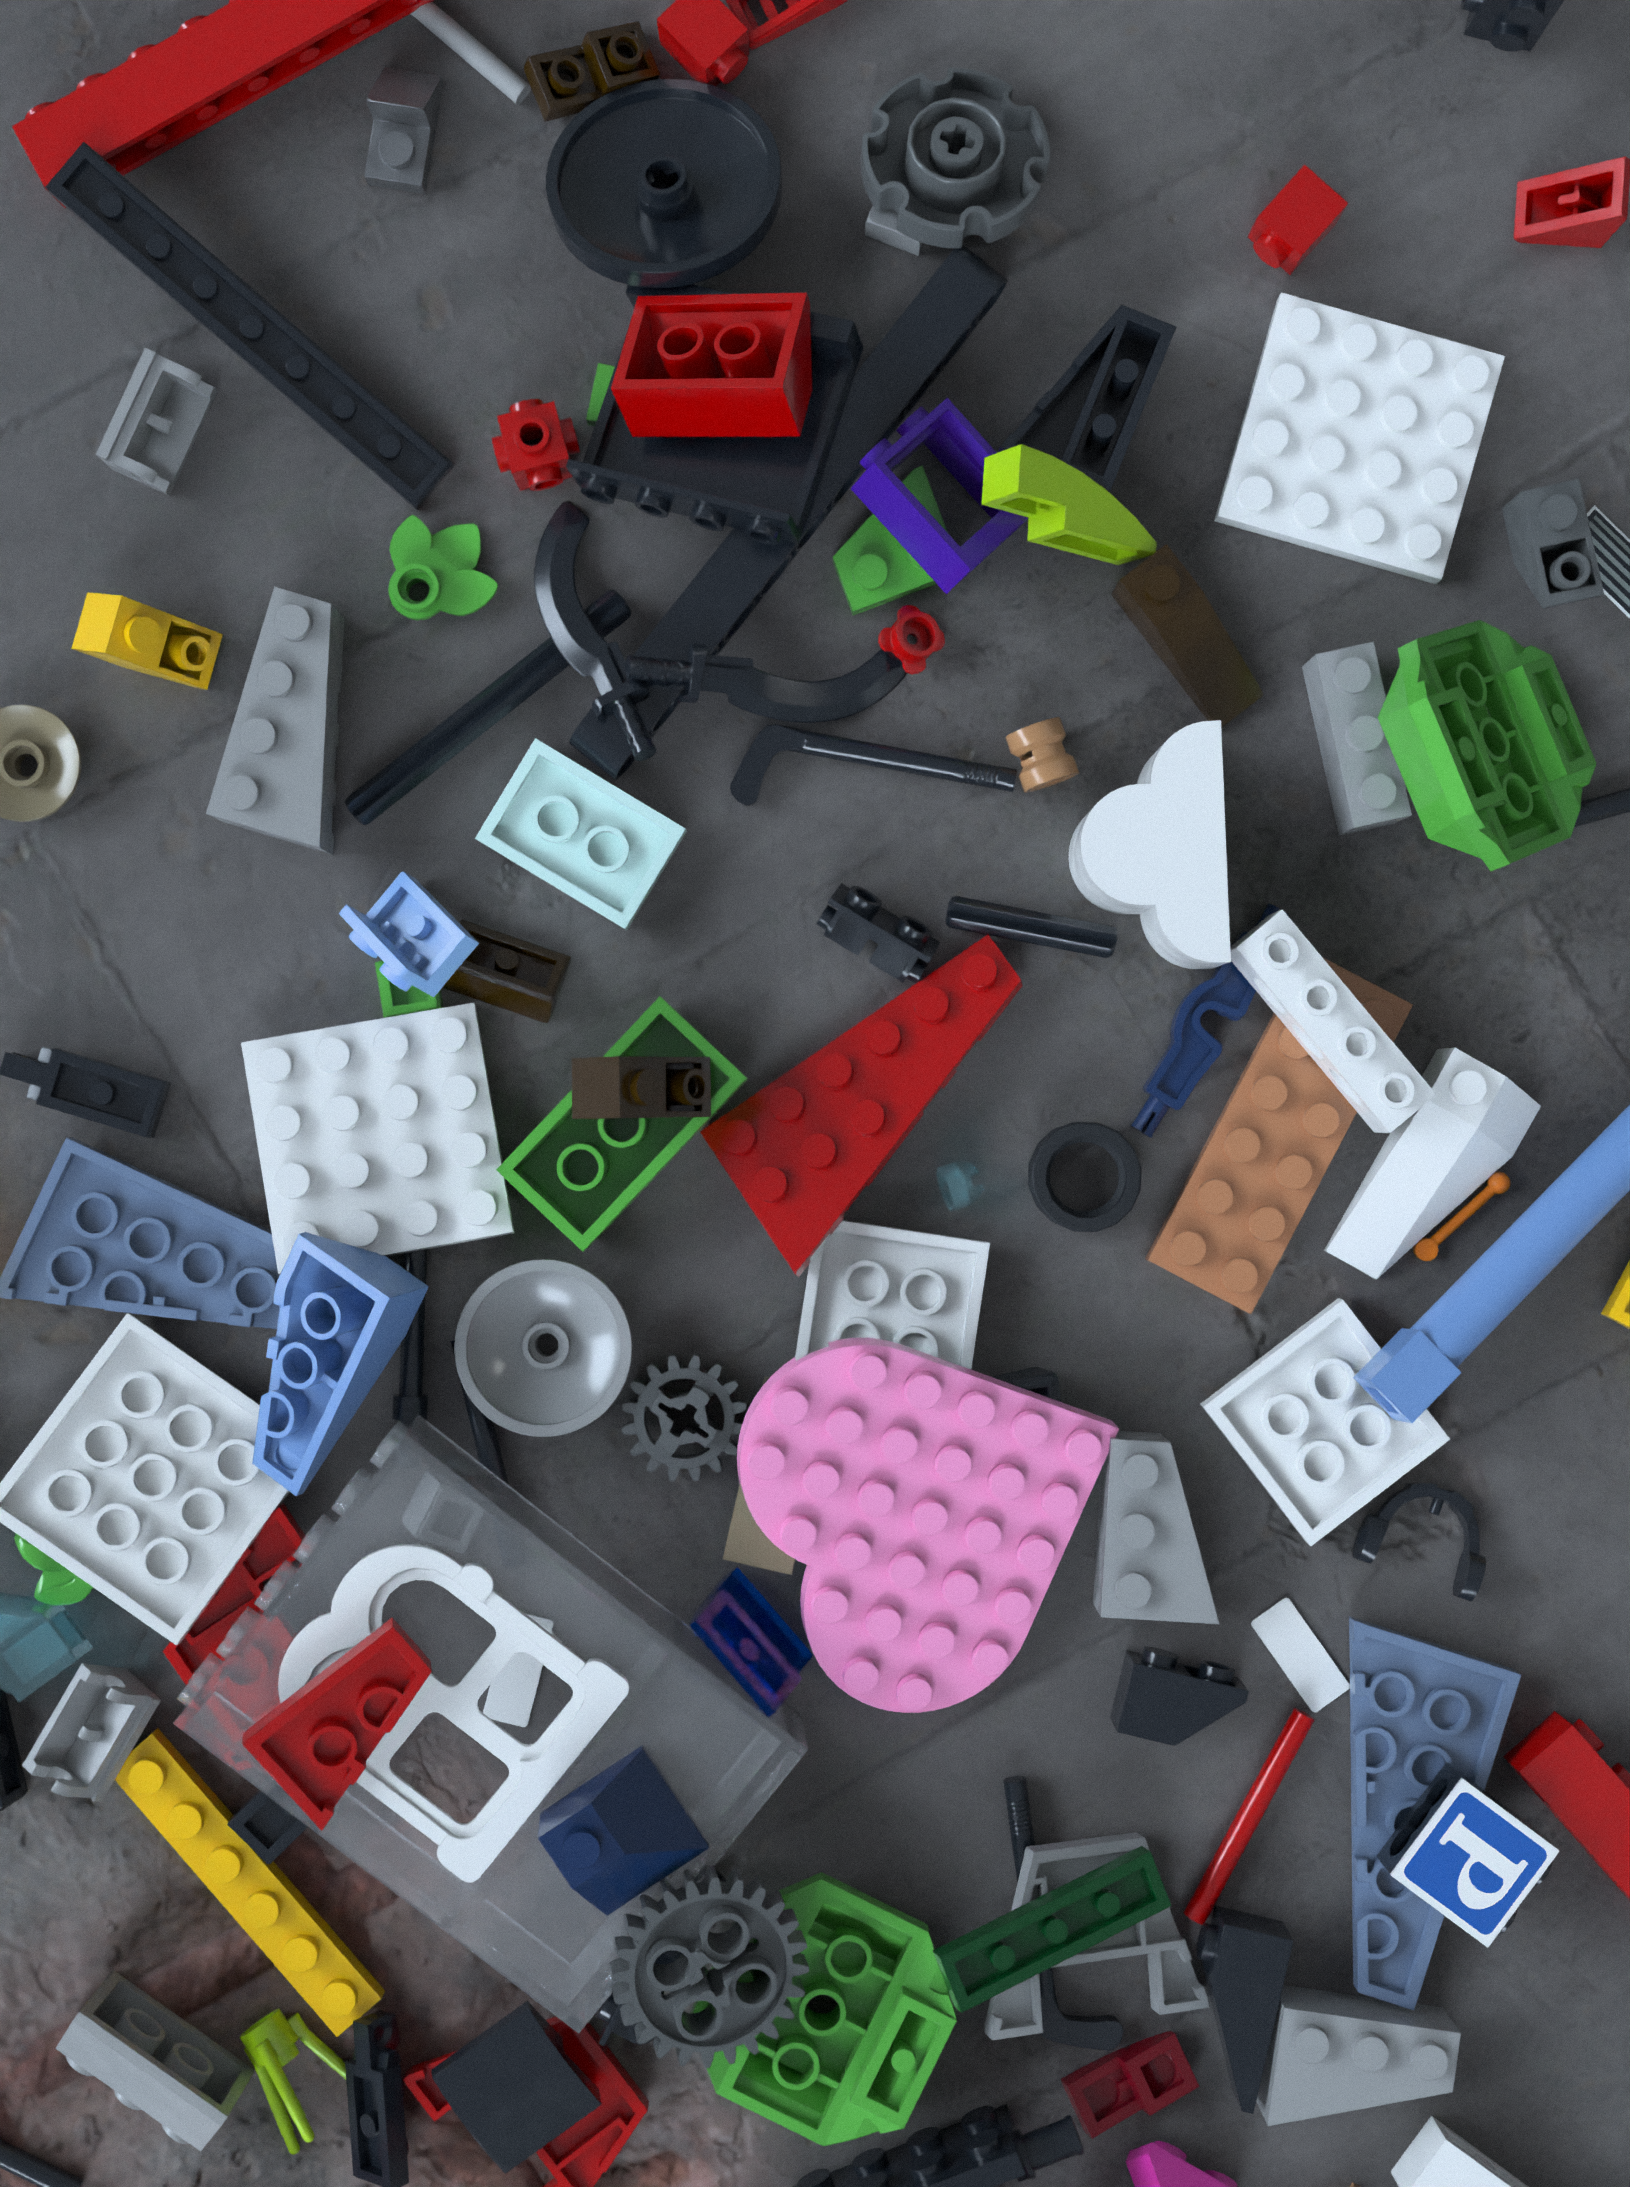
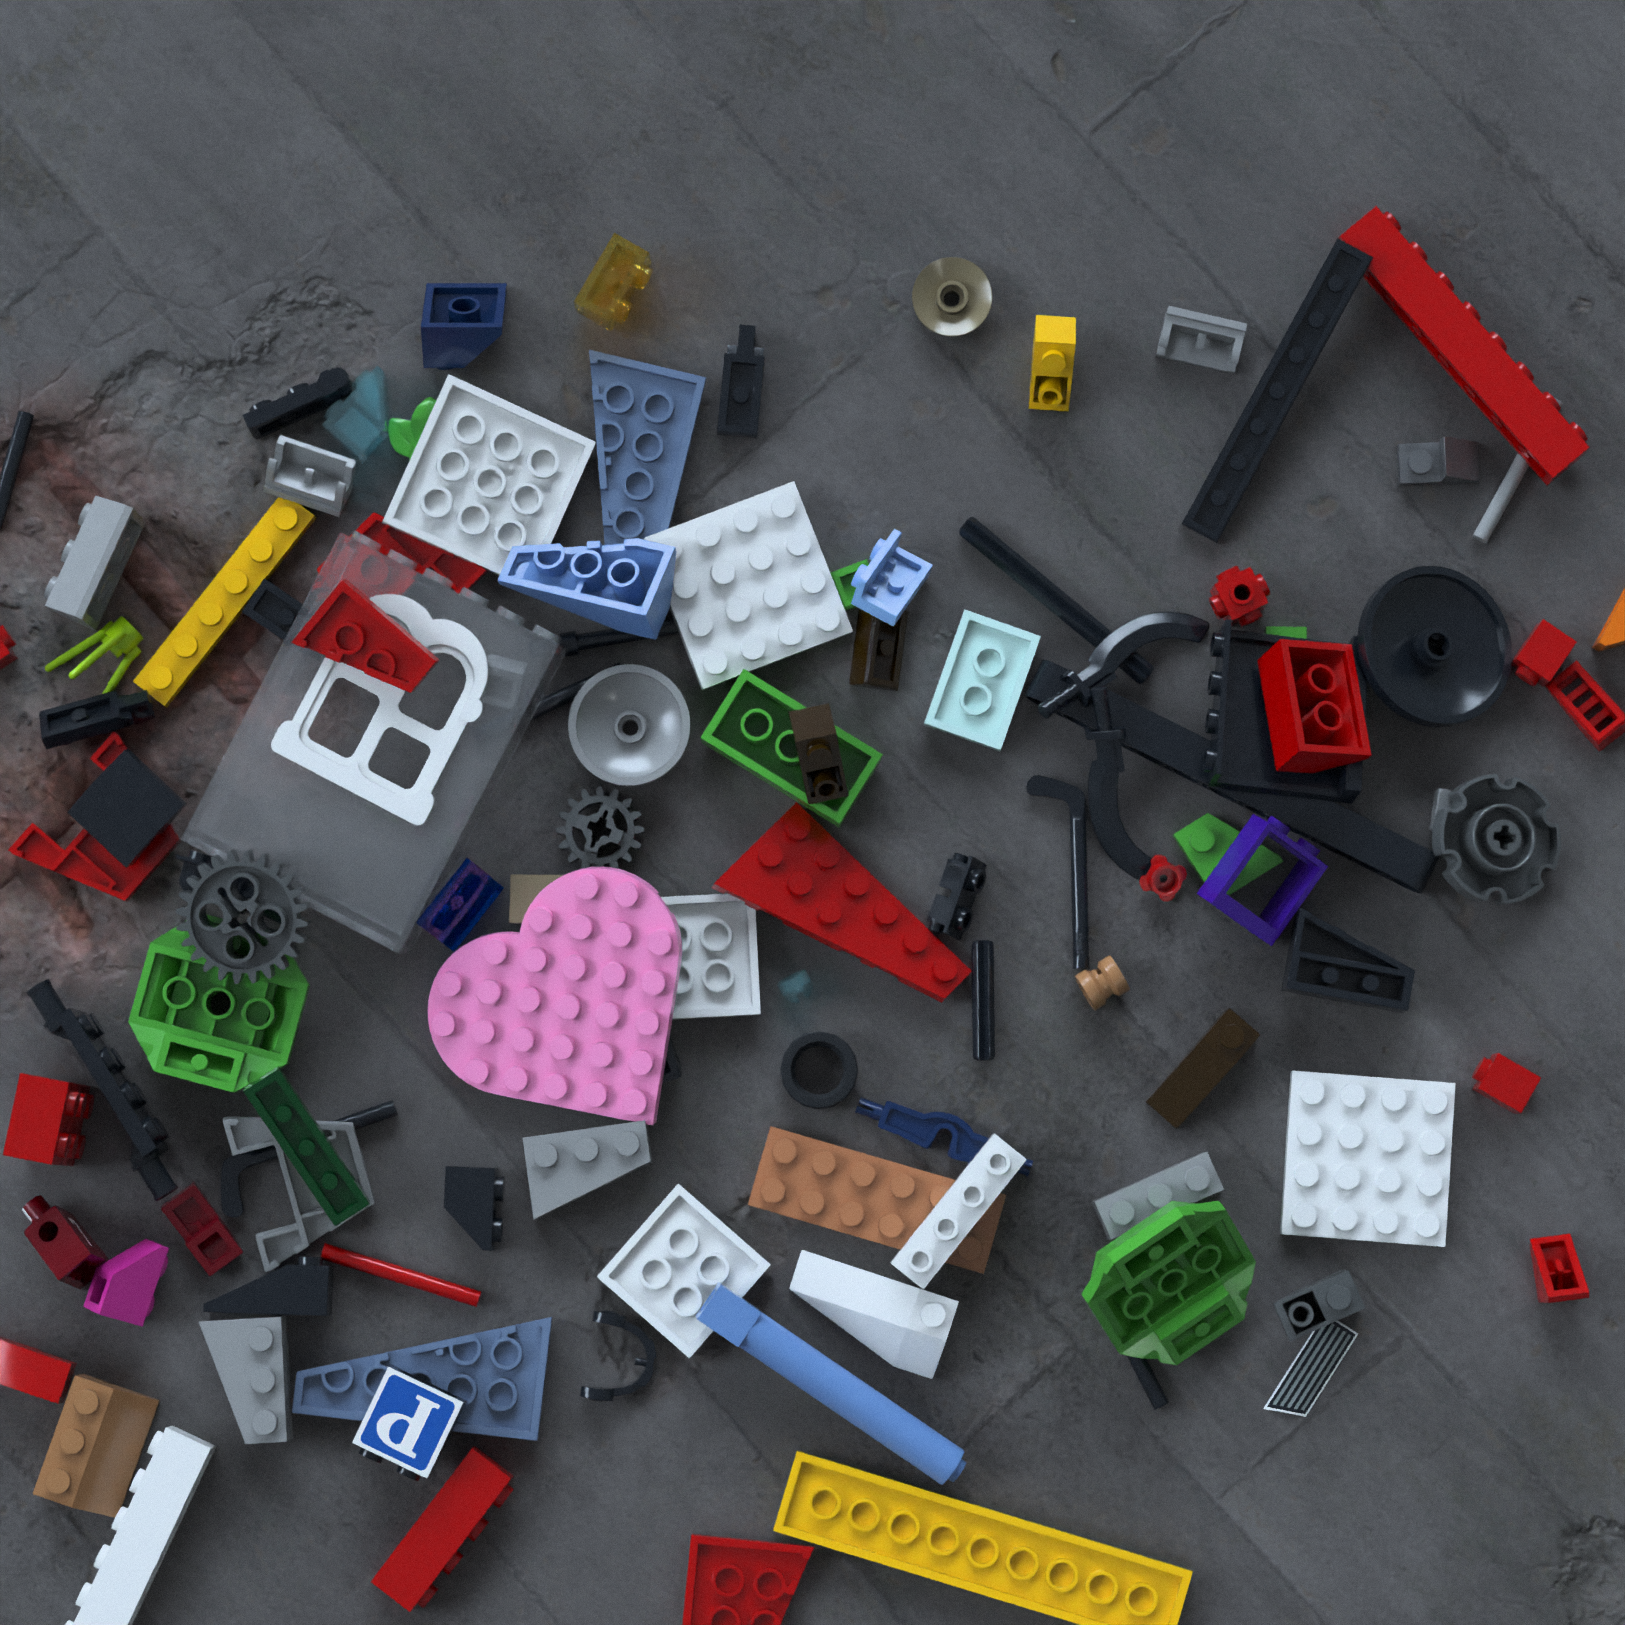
camera: 80 degrees right, 5 degrees down
(286, 729) = (1010, 468): light grey wedge -> none
(444, 564) = (1146, 552): bright green plate -> none
(514, 1690) = (400, 754): white sticker -> none
(578, 75) = (1505, 581): dark brown slope -> none
(620, 1833) = (322, 840): dark blue slope -> none
(1063, 506) = (1270, 959): lime slope -> none
(1164, 850) = (1053, 1073): white brick -> none
(1300, 1655) = (518, 1289): white sticker -> none
(1428, 1249) = (817, 1320): orange hinge -> none

